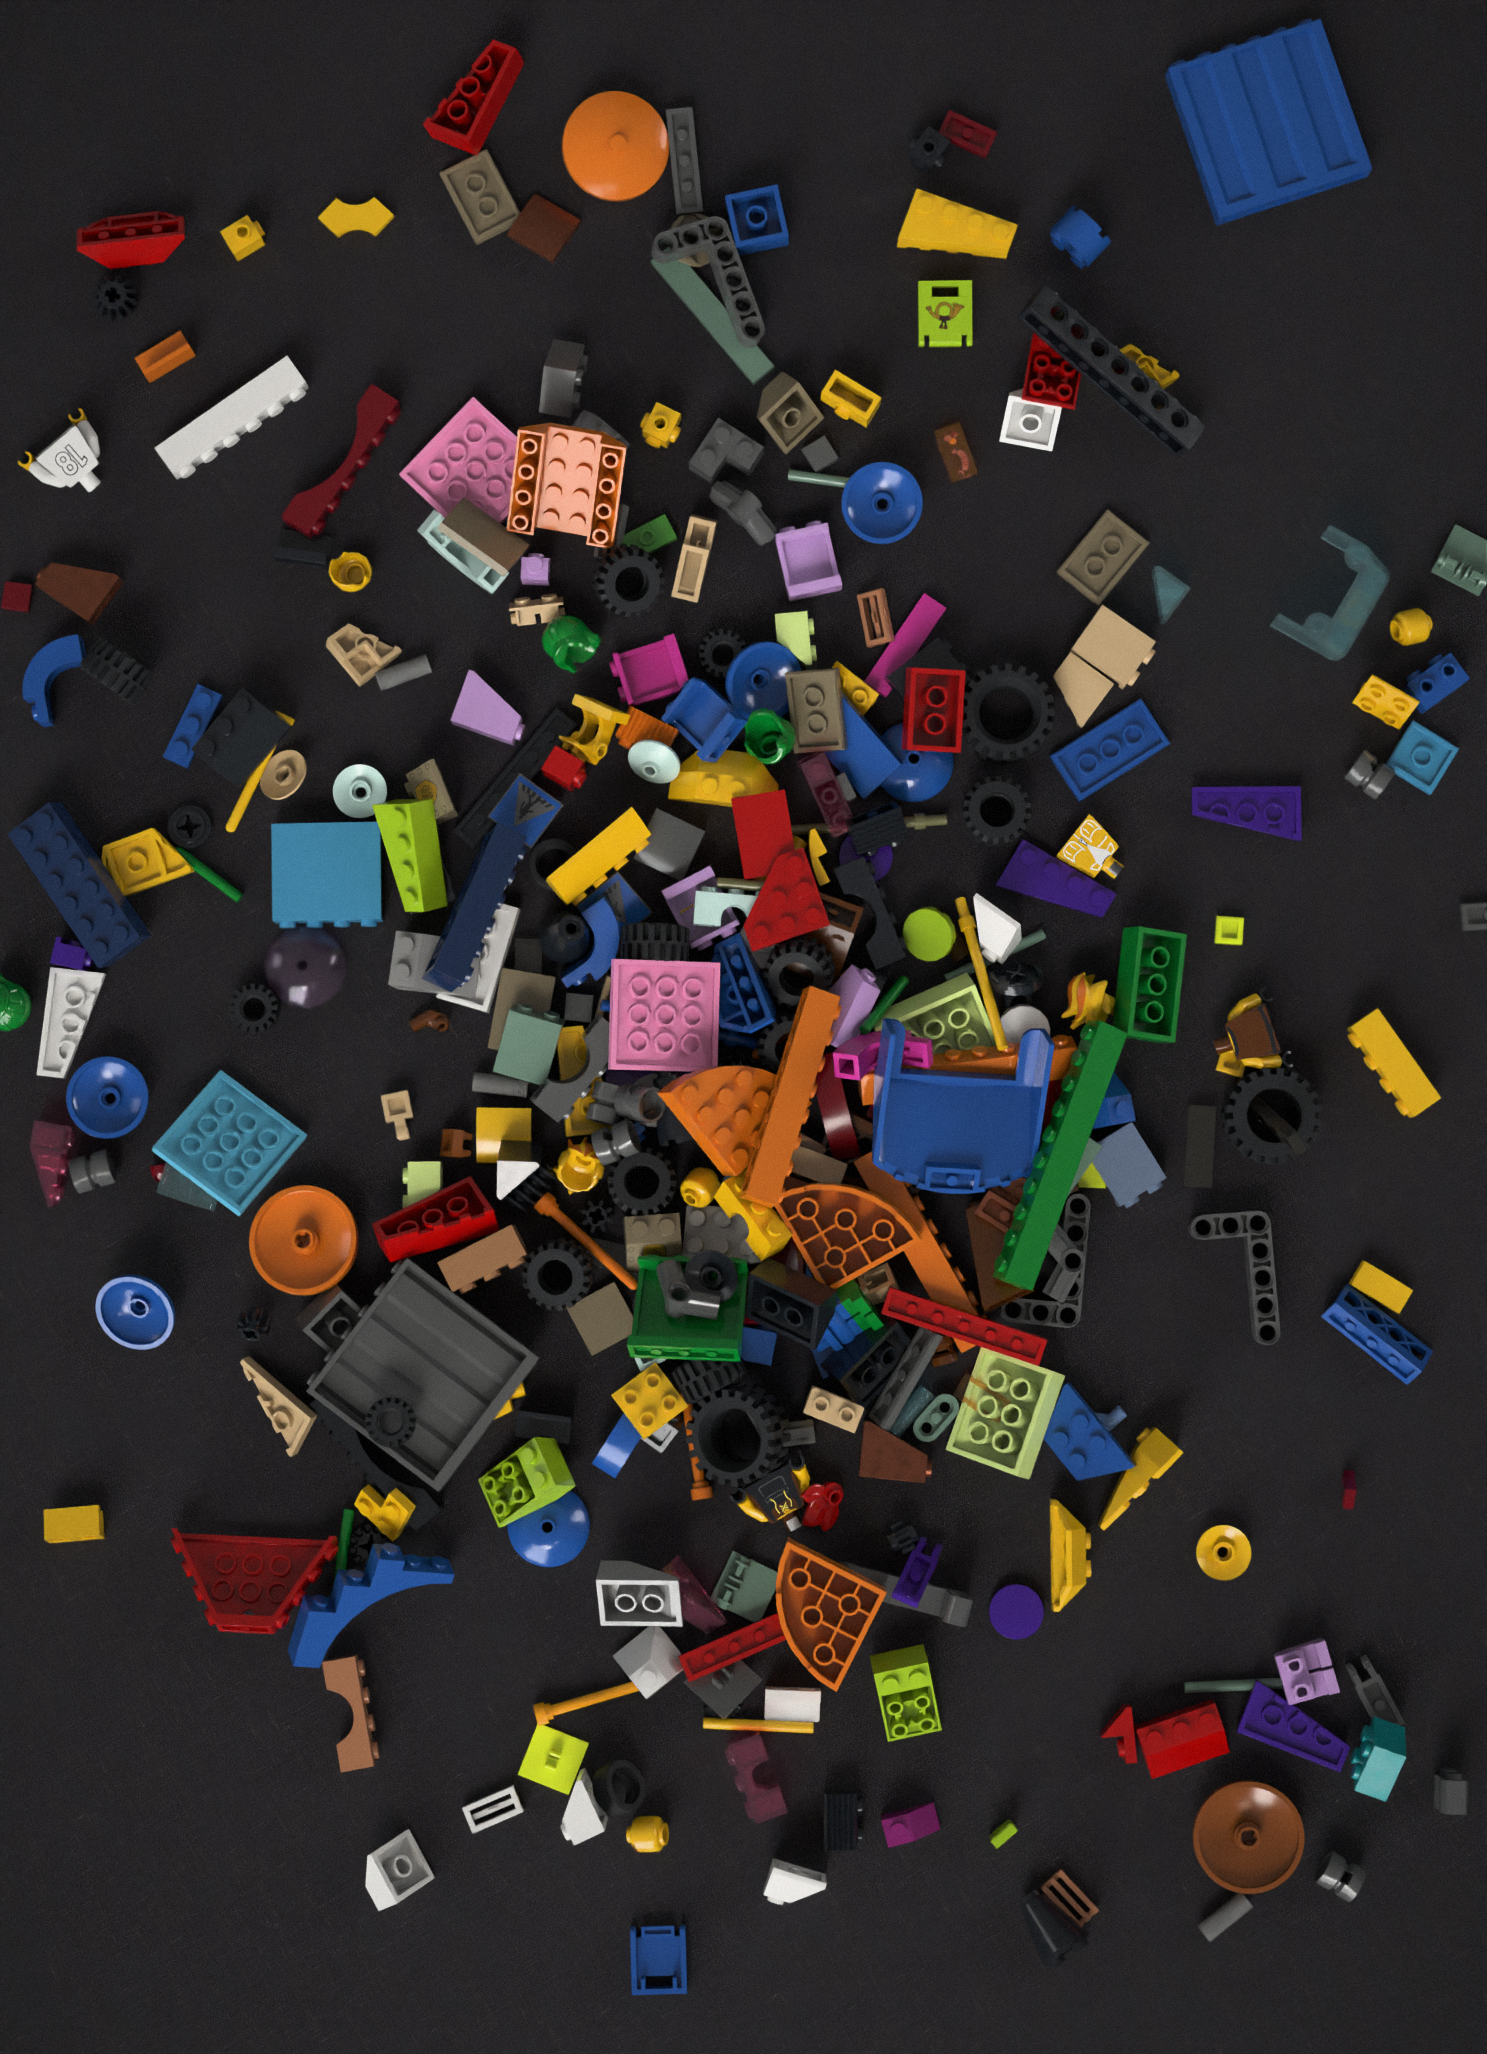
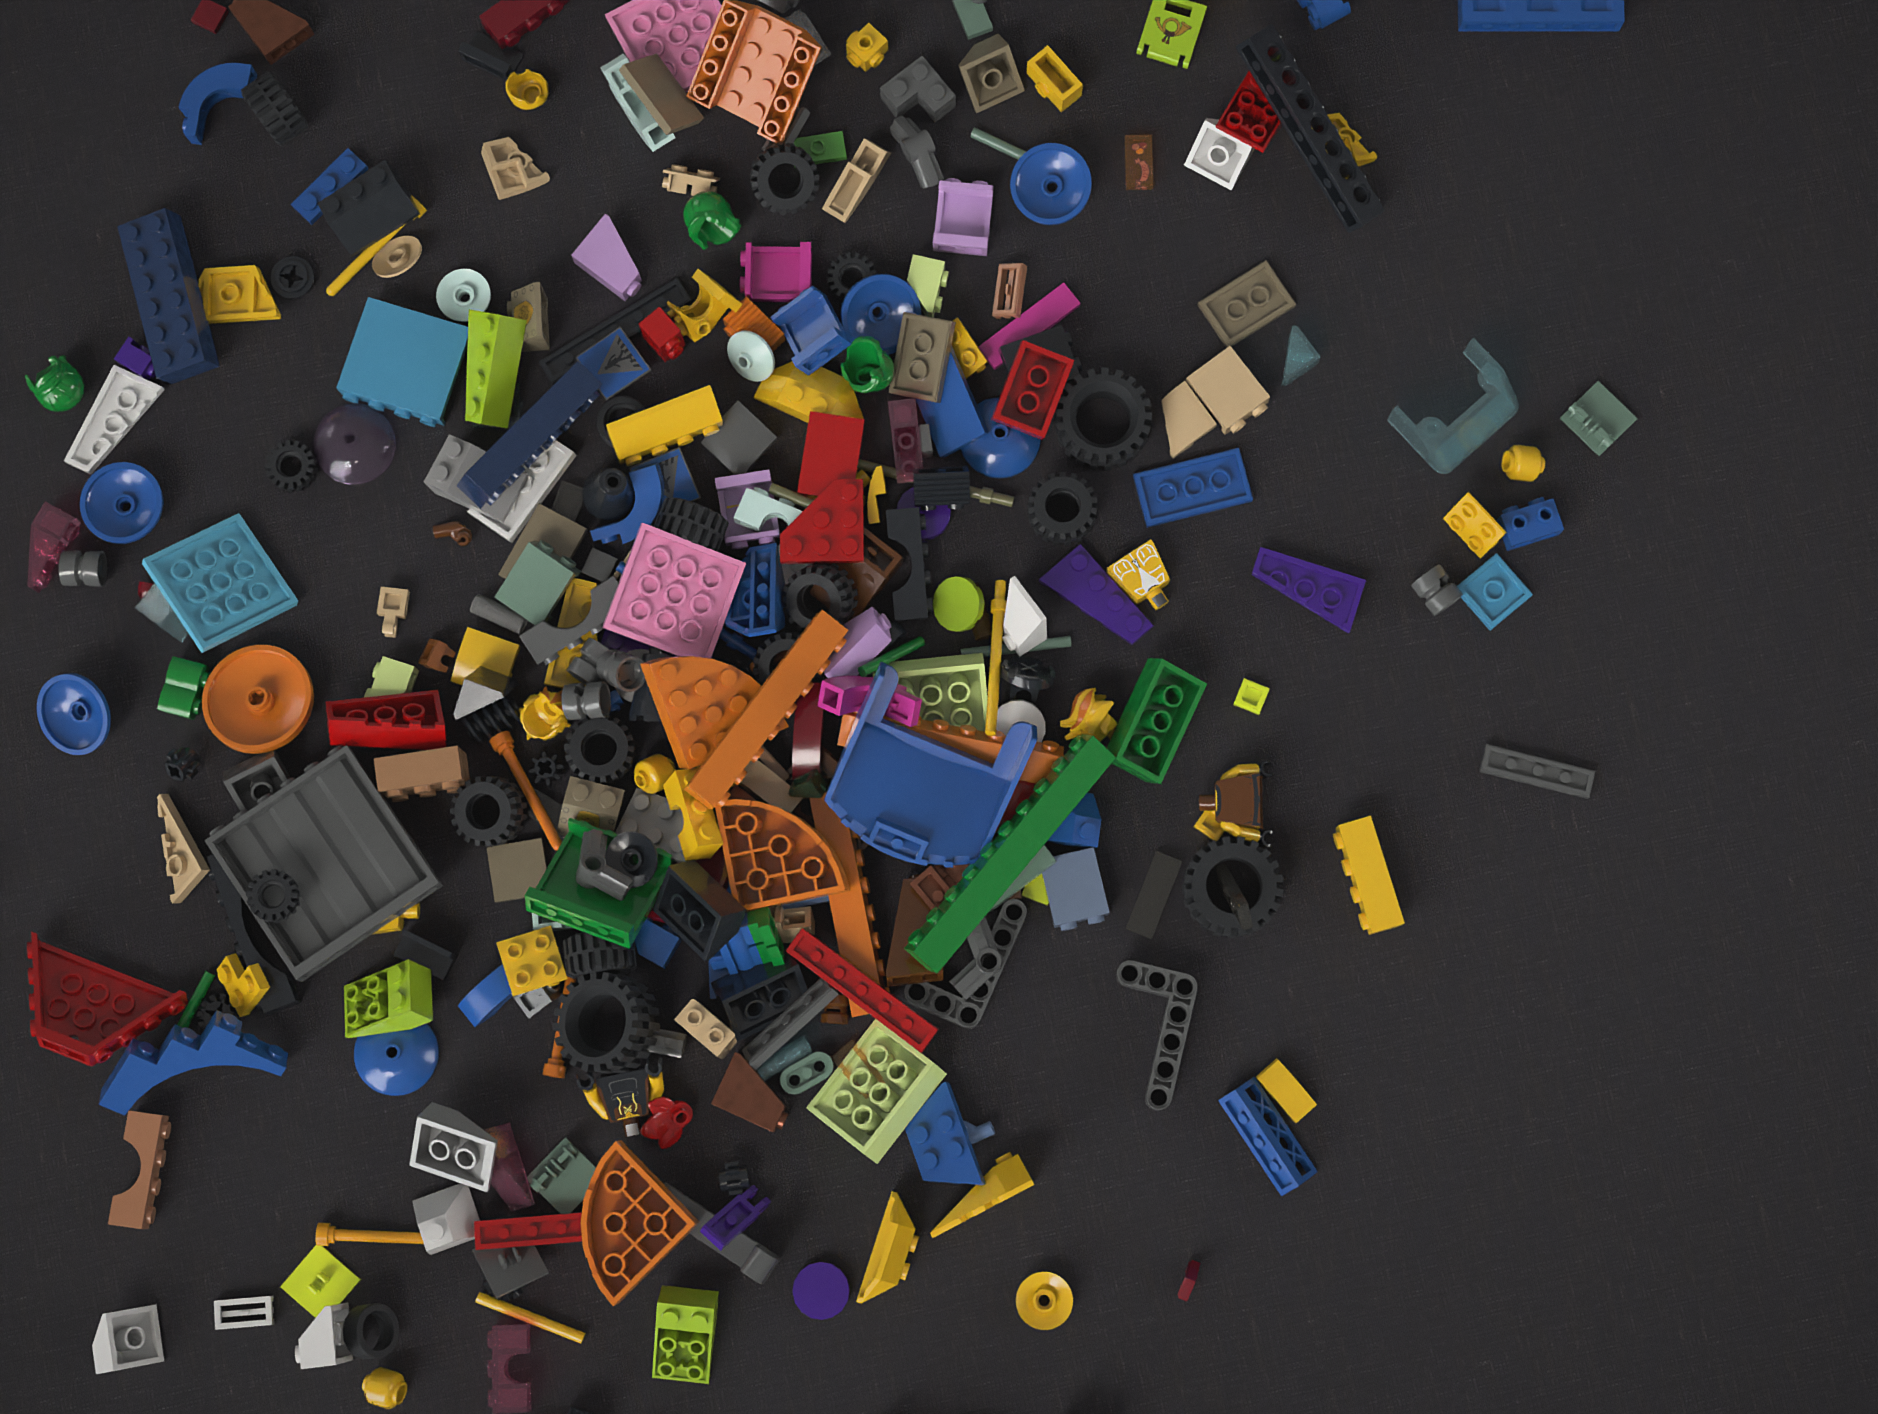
camera: 20 degrees right, 5 degrees down
(211, 876) = (296, 330): green bar -> none
(229, 1253) = (183, 688): none -> green brick
(408, 675) = (547, 201): light grey piece -> none
(535, 570) = (701, 143): lavender brick -> none
(792, 1704) = (570, 1308): white panel -> none
(819, 454) = (1008, 123): dark grey tile -> none
(849, 1153) = (808, 785): none -> slope

